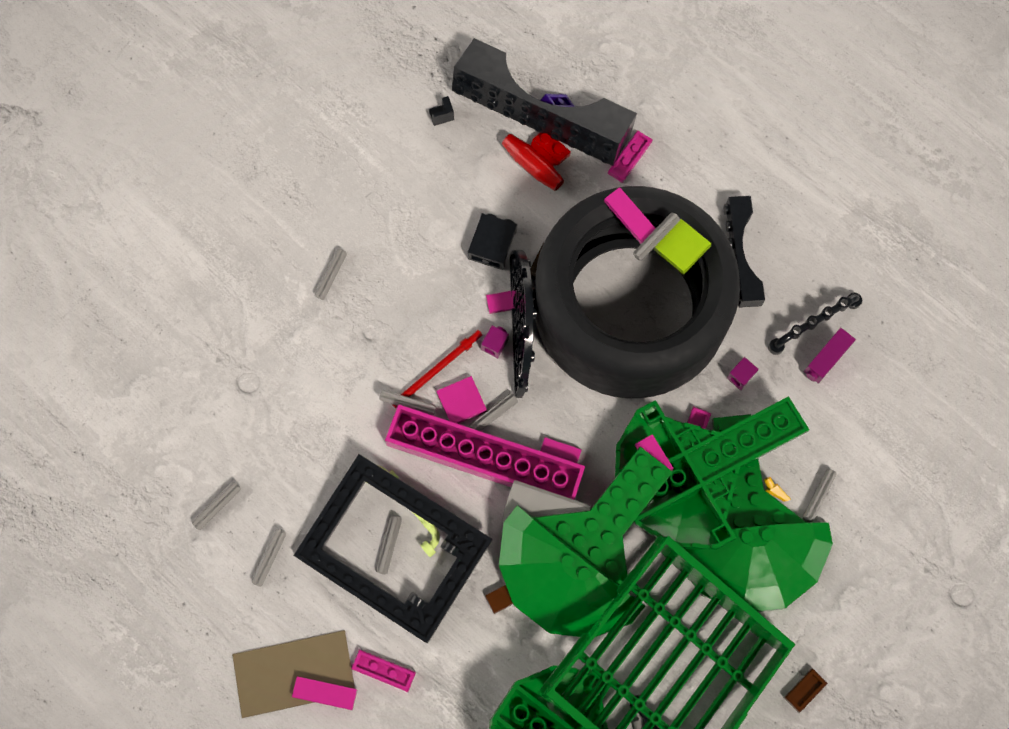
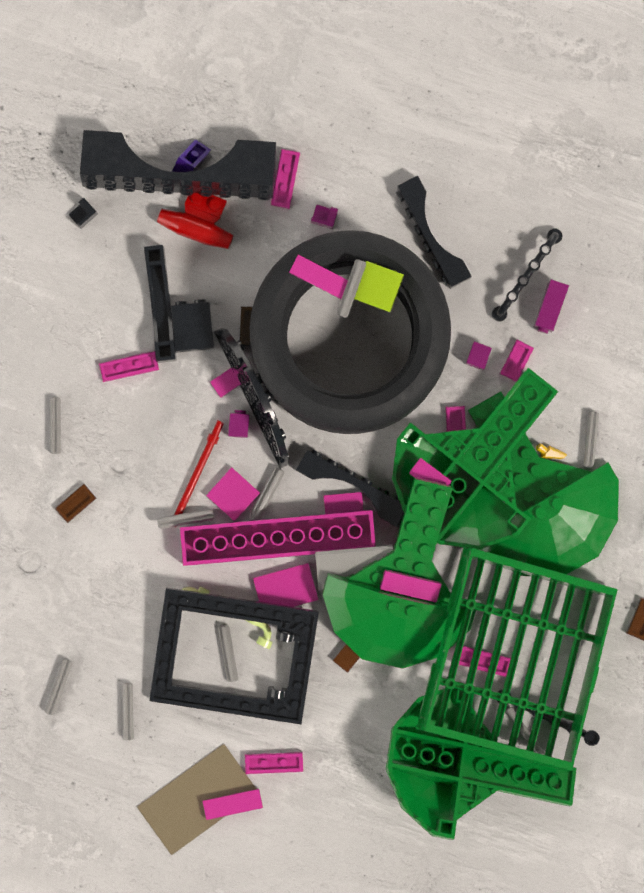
camera: 25 degrees left, 15 degrees up
(315, 348) = (75, 503): none -> reddish brown tile
(420, 252) = (129, 366): none -> dark pink tile
(474, 506) = (287, 587): none -> dark pink tile
(475, 205) = (160, 303): none -> black arch
(549, 410) = (317, 468): none -> black arch
(592, 550) = (410, 585): none -> dark pink tile
(631, 661) = (484, 661): none -> dark pink tile
(779, 390) = (516, 360): none -> dark pink tile

